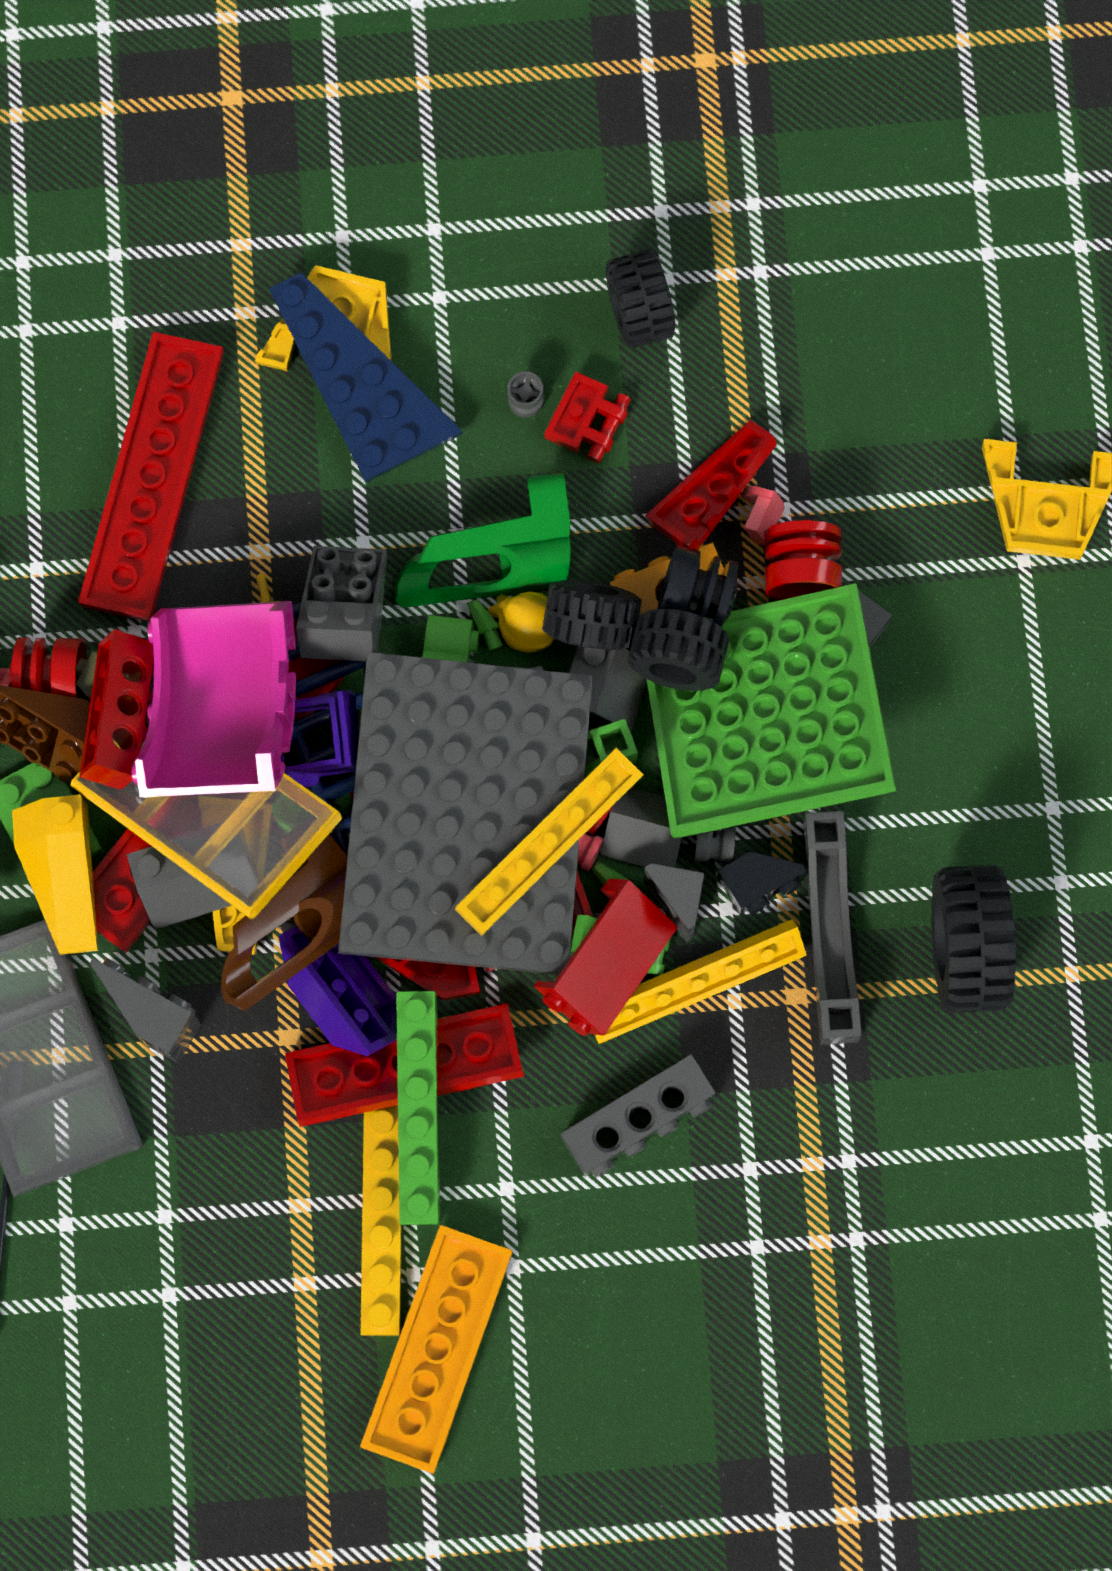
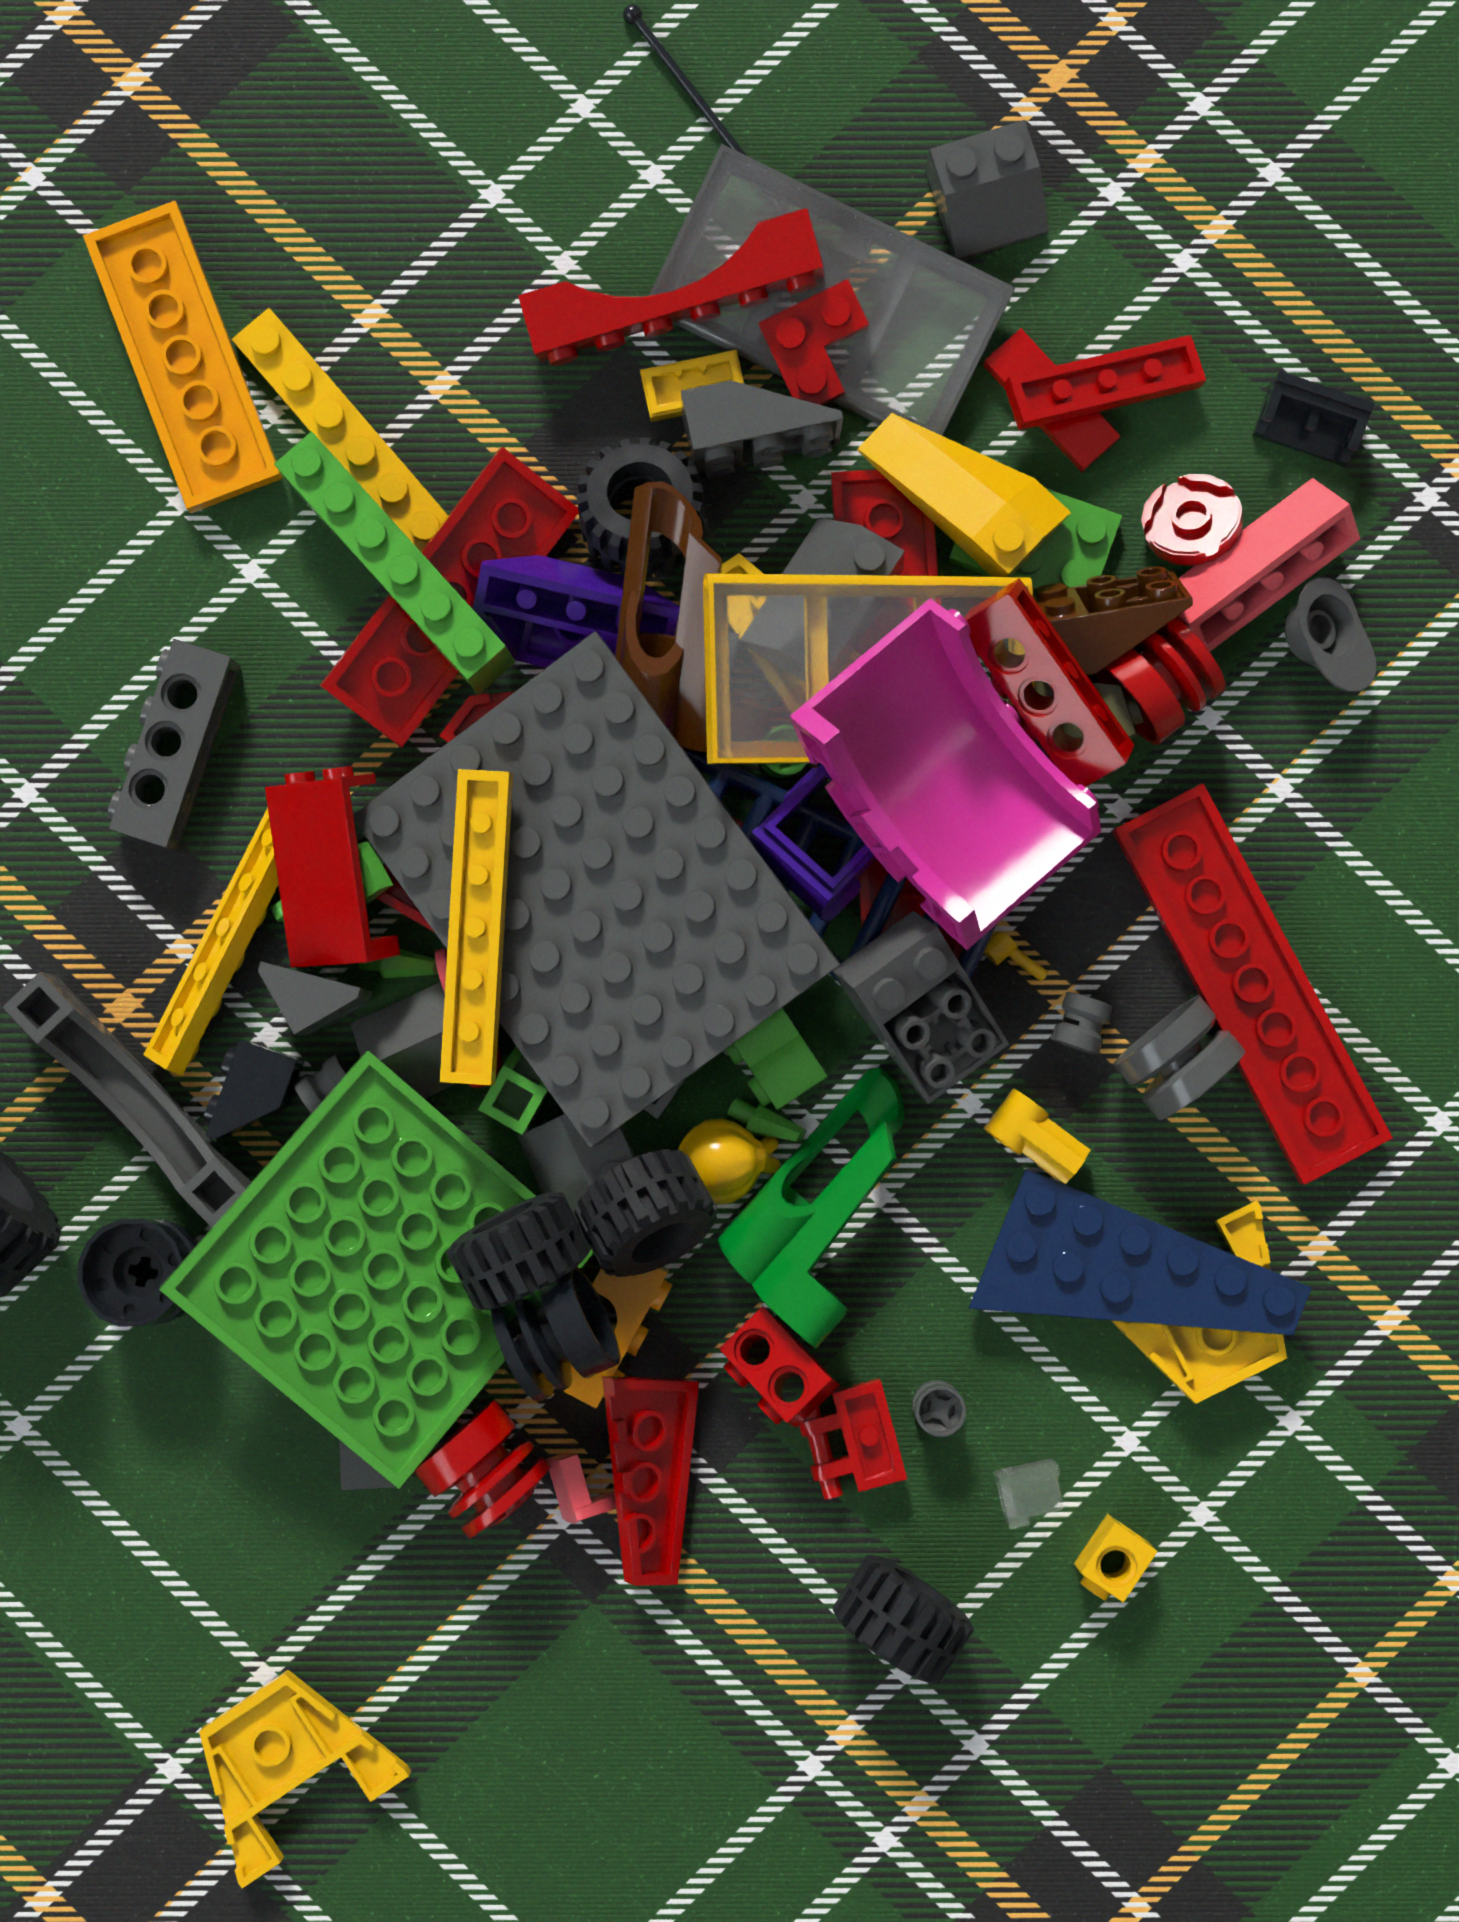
camera: 135 degrees right, 10 degrees up
(47, 1098) = (773, 258): none -> red arch
(66, 1043) = (802, 334): none -> red plate
(156, 1072) = (664, 382): none -> yellow plate
(228, 463) = (1184, 1064): none -> dark grey wheel
(231, 1046) = (613, 482): none -> black tyre
(257, 536) = (1082, 1023): none -> dark grey wheel
(344, 497) = (1028, 1130): none -> yellow piece
(495, 255) = (1108, 1537): none -> yellow brick
(516, 314) = (1028, 1491): none -> clear panel
(584, 484) = (785, 1360): none -> red brick
(911, 803) = (113, 1270): none -> black wheel

